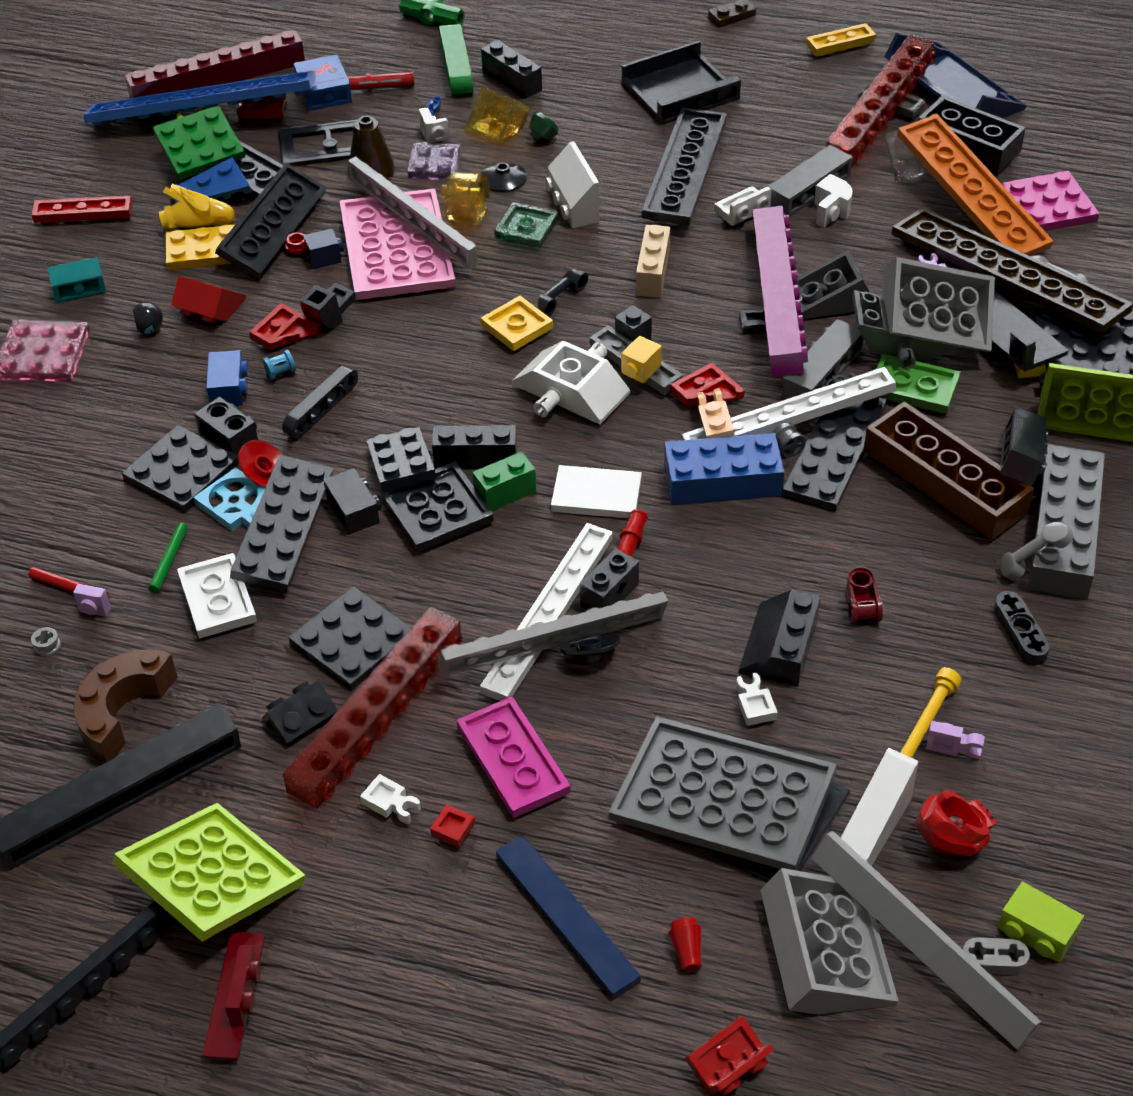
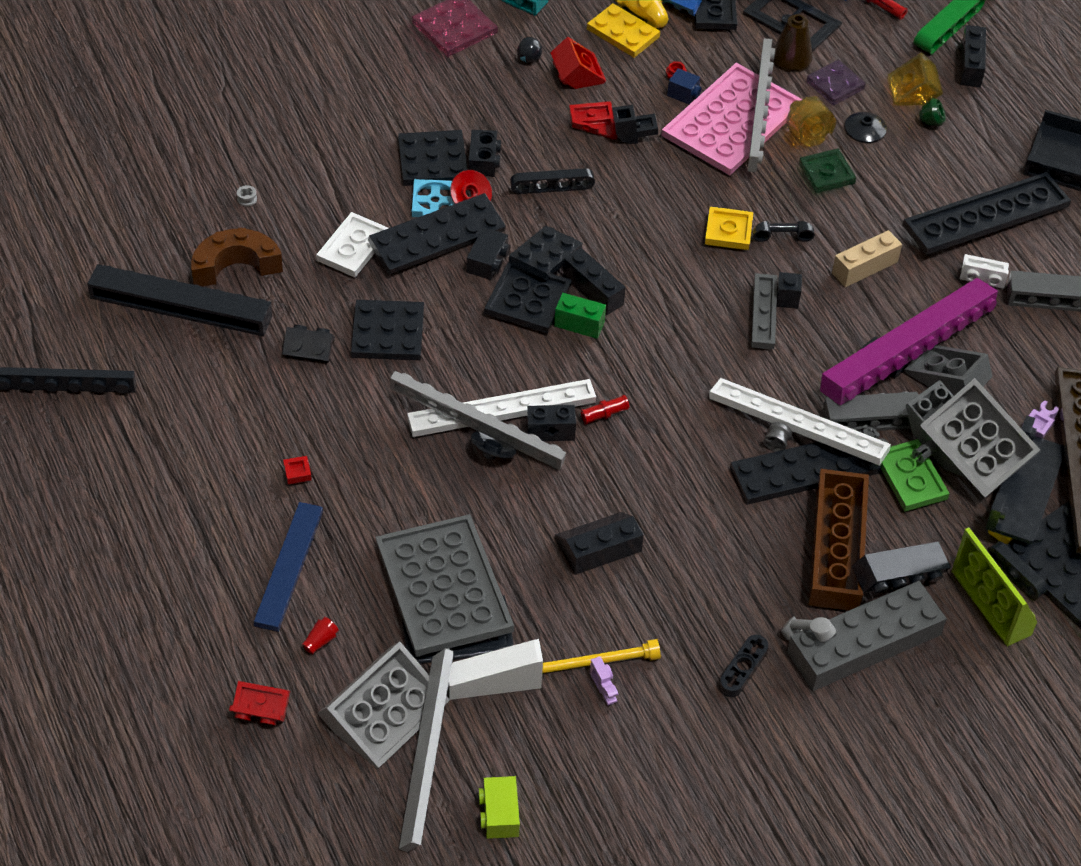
camera: 45 degrees right, 5 degrees up
(53, 579) = (295, 174): red bar -> none
(92, 600) = (291, 192): lavender plate -> none
(168, 557) = (360, 202): green bar -> none
(209, 871) = (158, 379): lime plate -> none
(226, 376) = (521, 123): brick -> none
(234, 996) = (99, 450): dark red bracket -> none
(270, 219) = (679, 42): black plate -> none
(285, 358) = (566, 144): dark azure bush -> none
(371, 709) = (343, 373): clear red brick -> none
(387, 796) = (287, 427): white plate -> none
(433, 129) = (864, 57): white bracket -> none
(434, 105) = (889, 43): blue piece -> none
(513, 757) = (373, 465): dark pink plate -> none
(573, 380) = (705, 293): white slope -> none
(574, 187) = (886, 170): white slope -> none
(596, 491) = (627, 368): white tile -> none
(641, 359) = (756, 311): yellow brick -> none
(705, 381) = (780, 363): red wing -> none
(715, 416) = (749, 384): light nougat hinge -> none
(723, 468) = (711, 418): blue brick -> none
(754, 703) = (532, 559): white plate -> none
(832, 200) = (1049, 319): white brick -> none
(863, 596) = (673, 563): dark red piece -> none
(954, 835) = (531, 716): red helmet -> none
(996, 956) = (452, 802): light grey beam -> none

